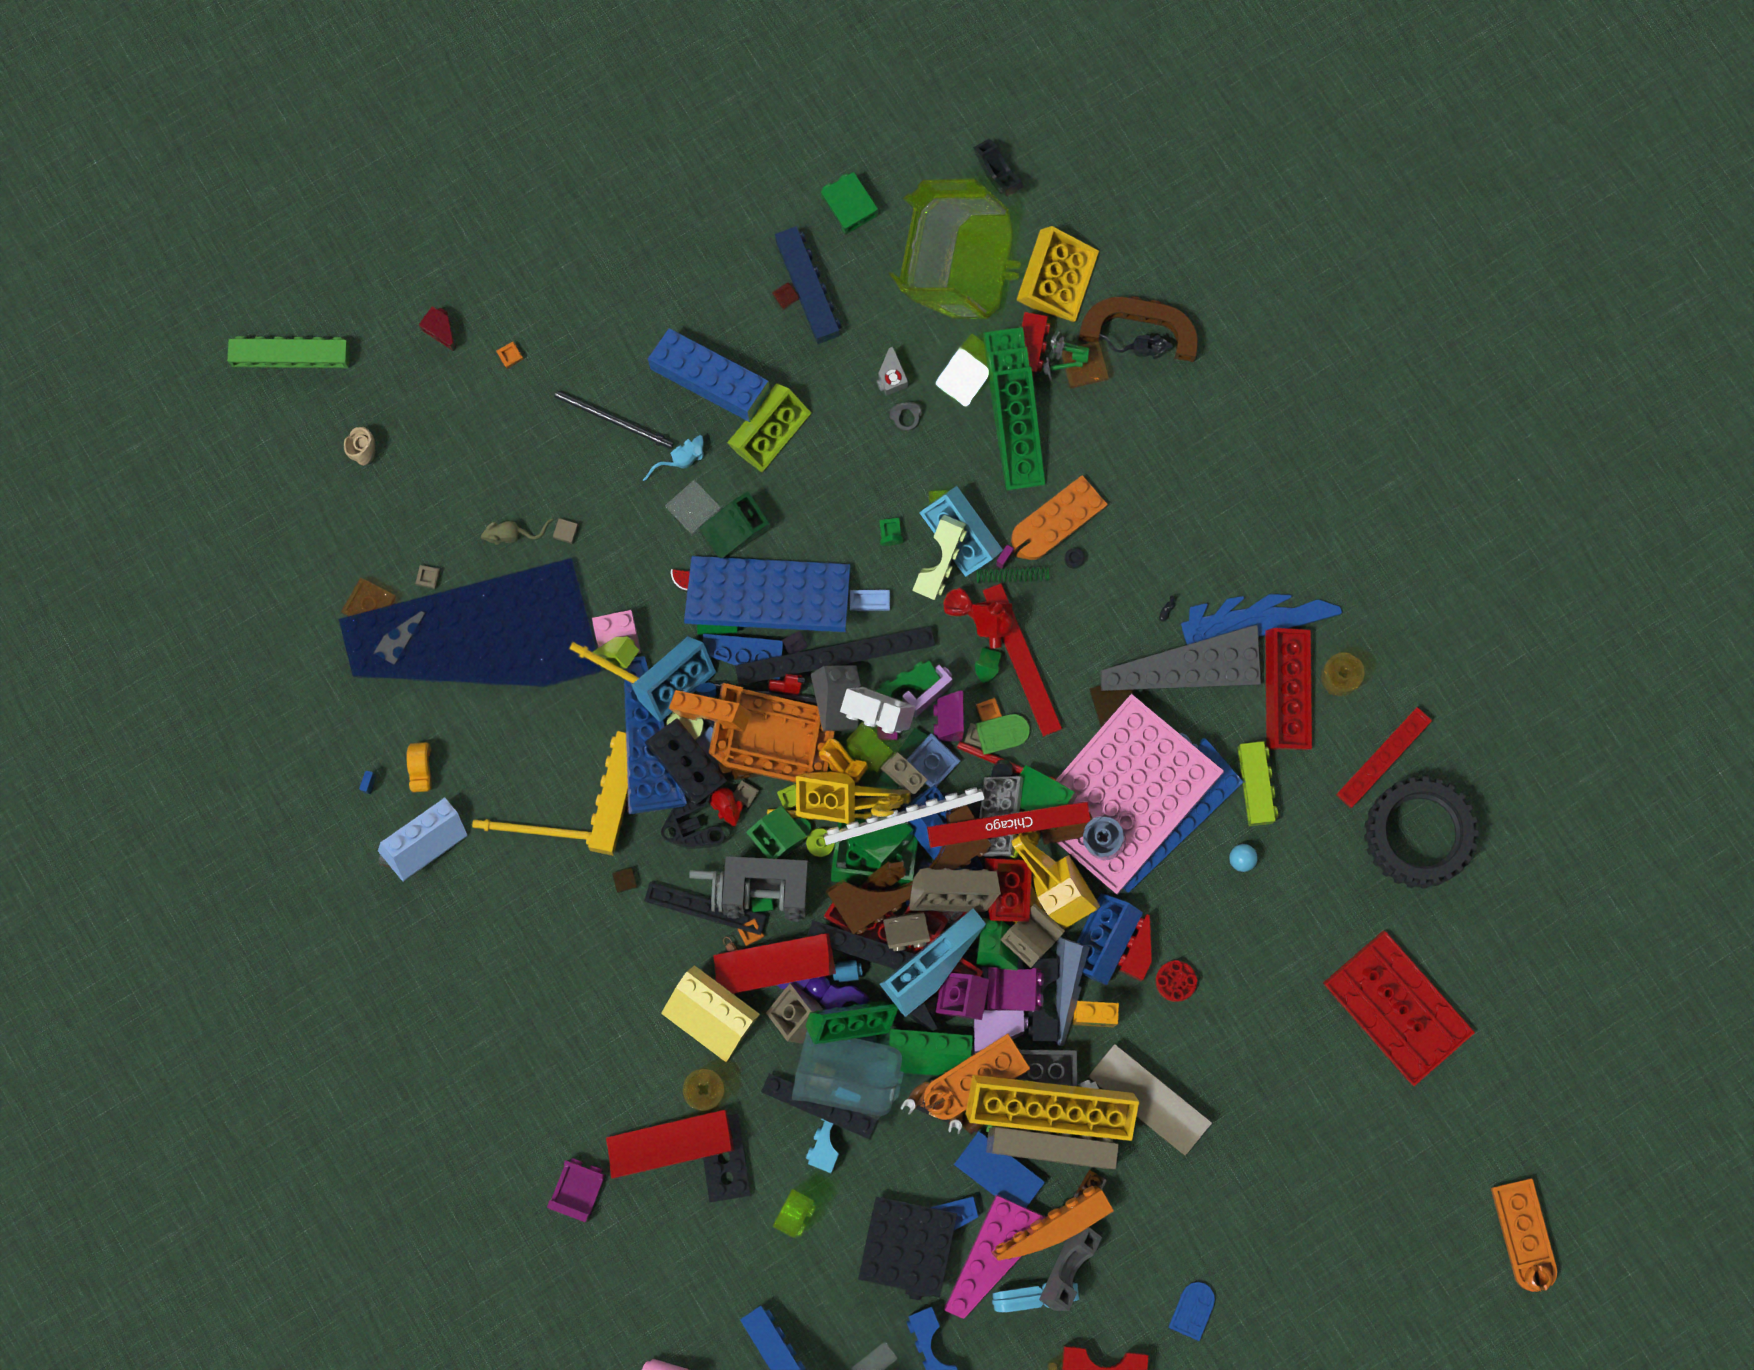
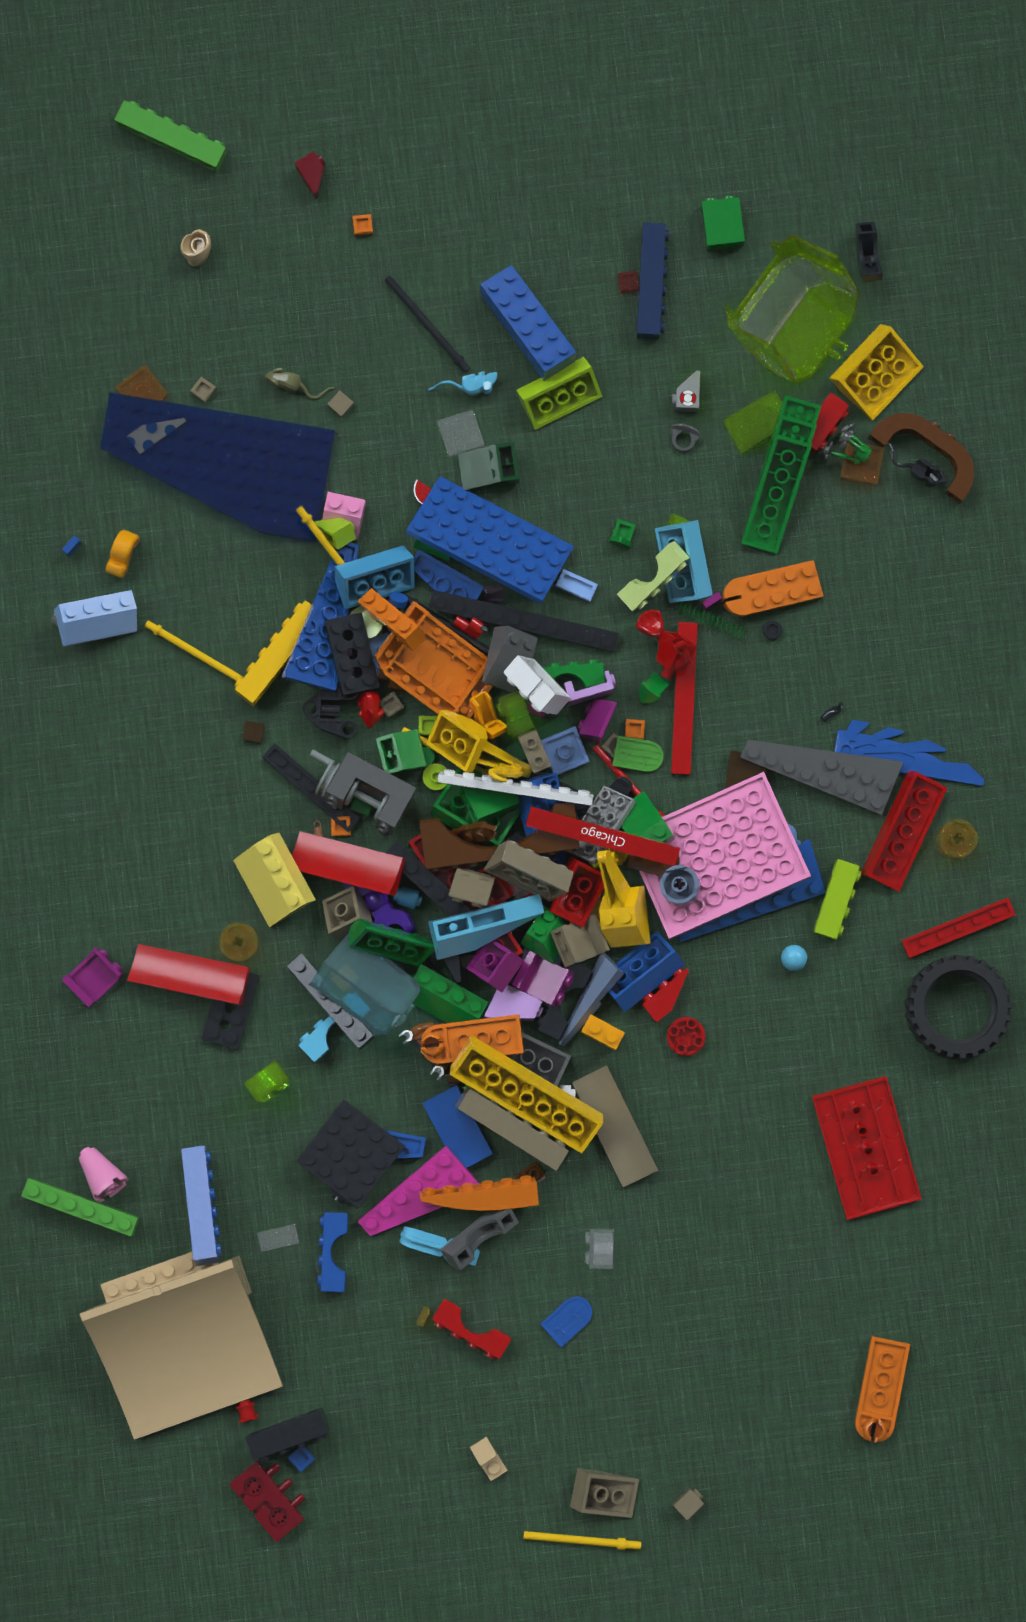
camera: 20 degrees right, 5 degrees up
(1192, 1225) = (600, 1248): none -> clear brick

